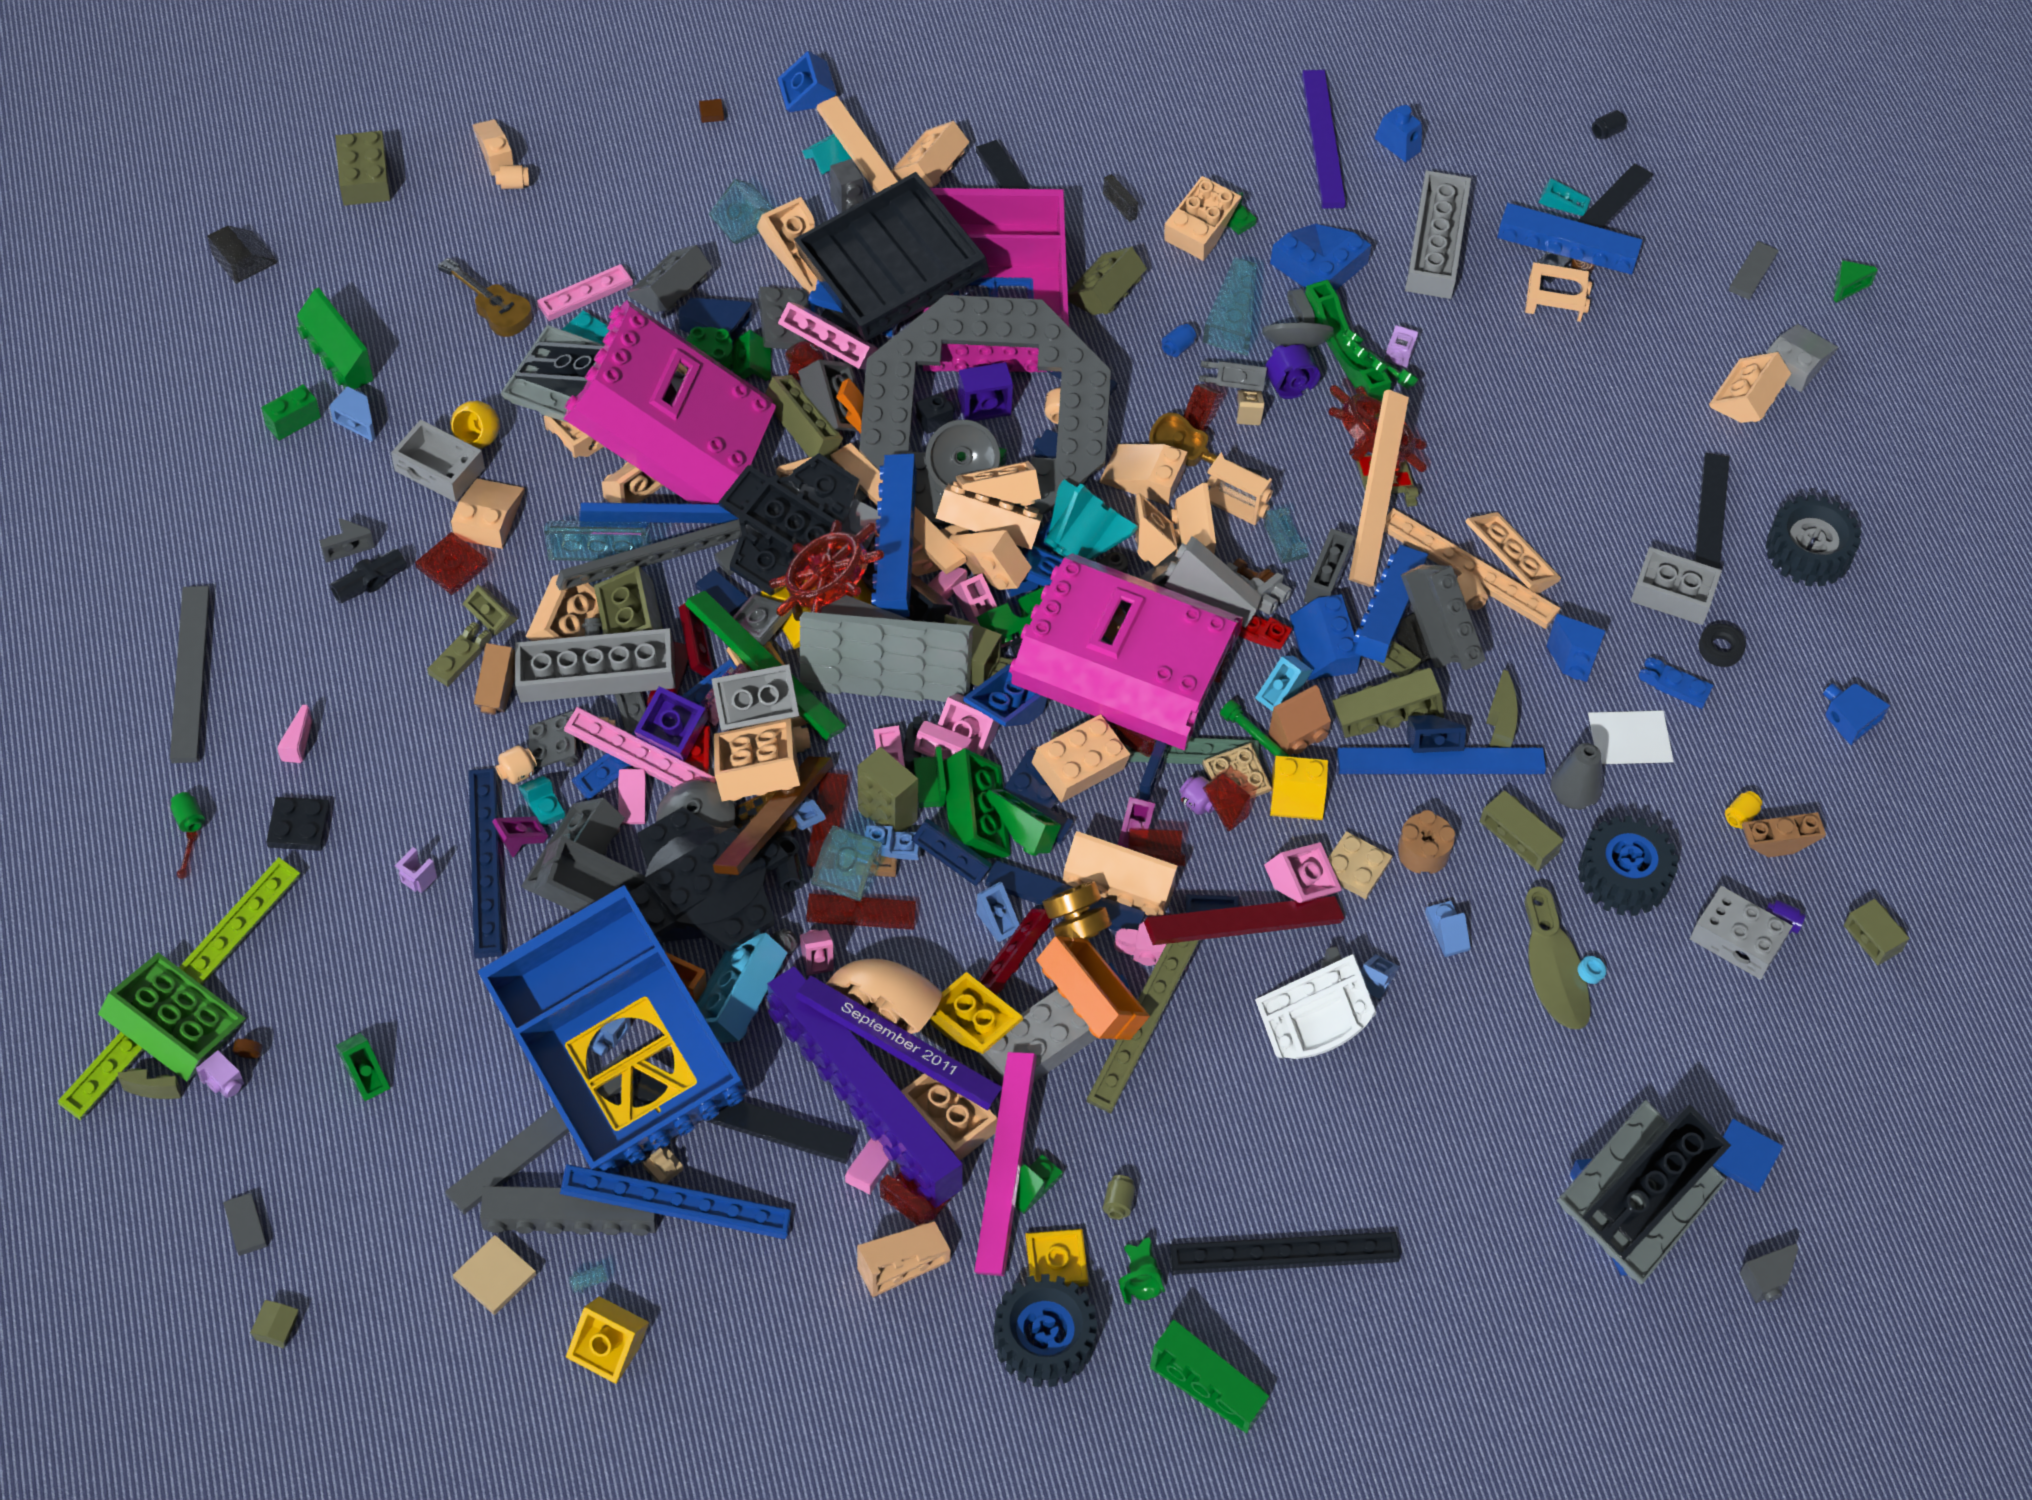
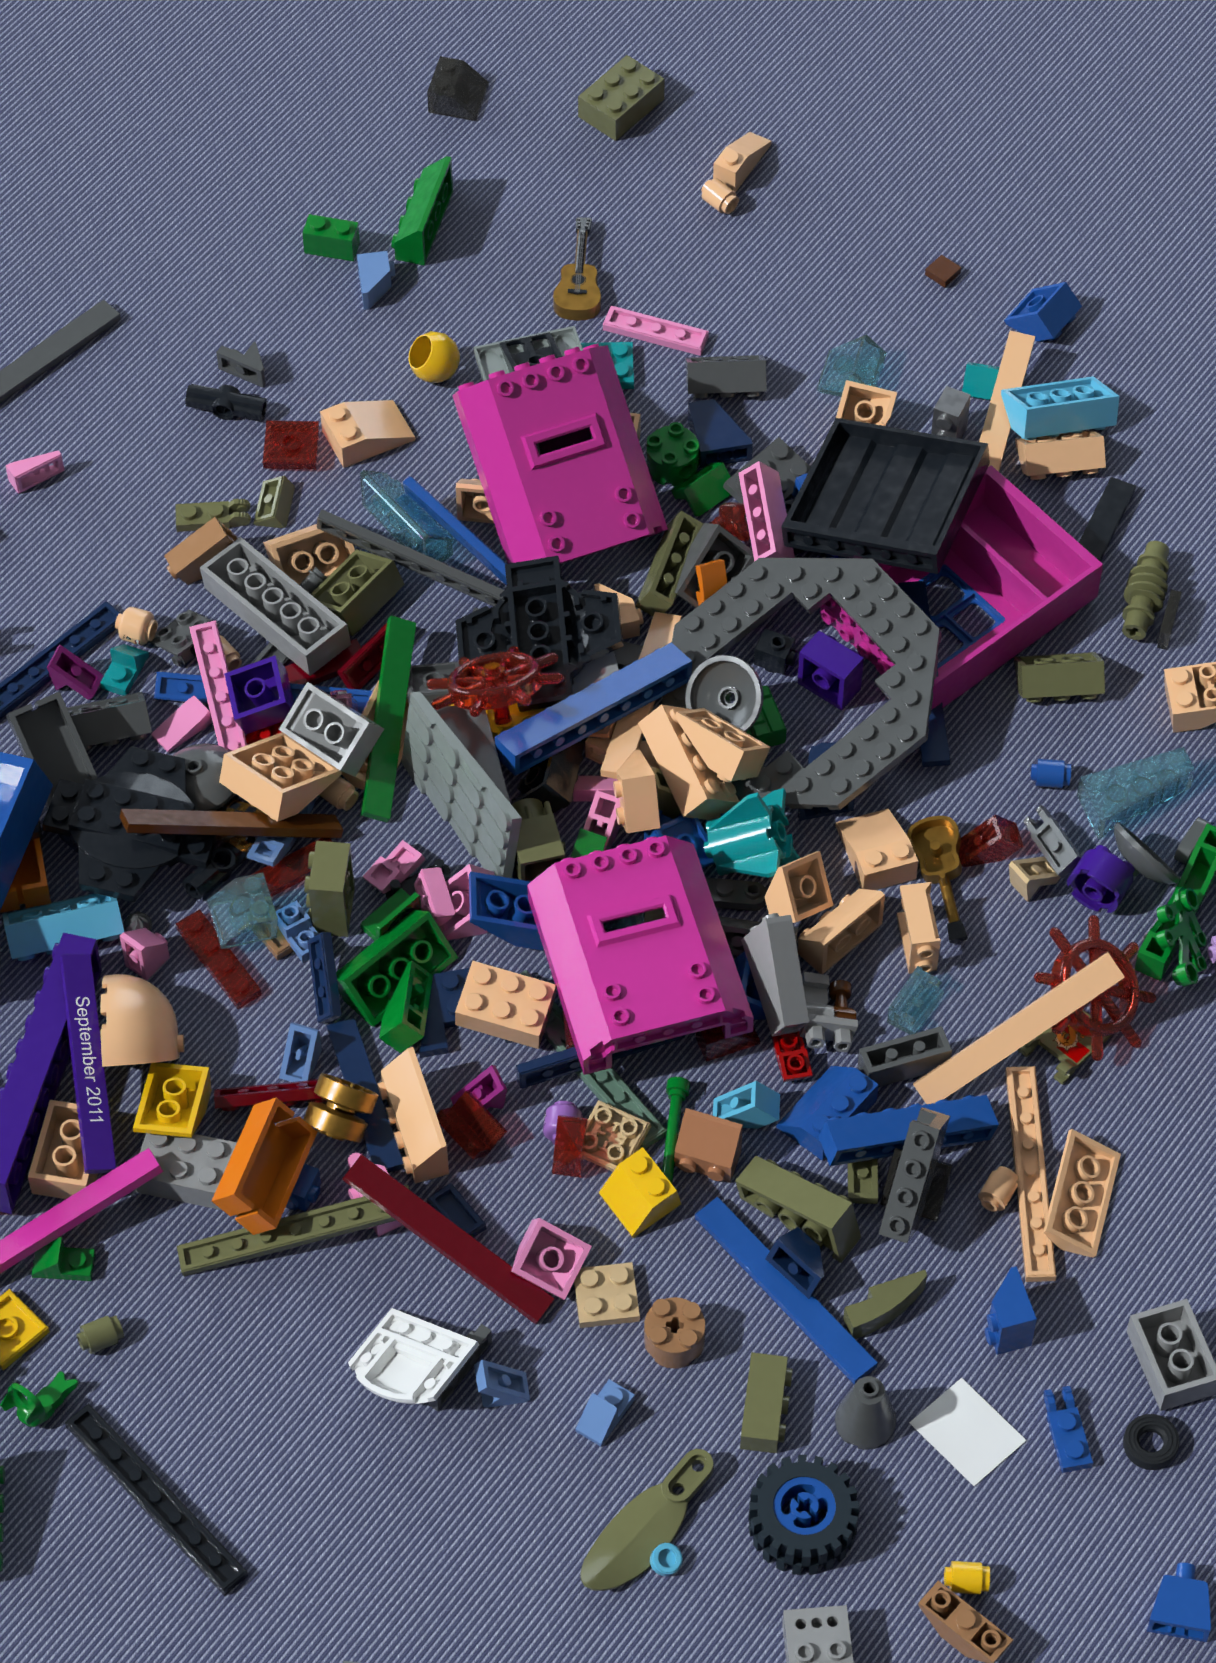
camera: 55 degrees right, 0 degrees up
(438, 460) = (376, 360): light grey piece -> none
(722, 591) = (441, 640): dark blue tile -> none
(900, 127) = (1060, 407): none -> medium azure slope
(1088, 191) = (1145, 590): none -> olive piece

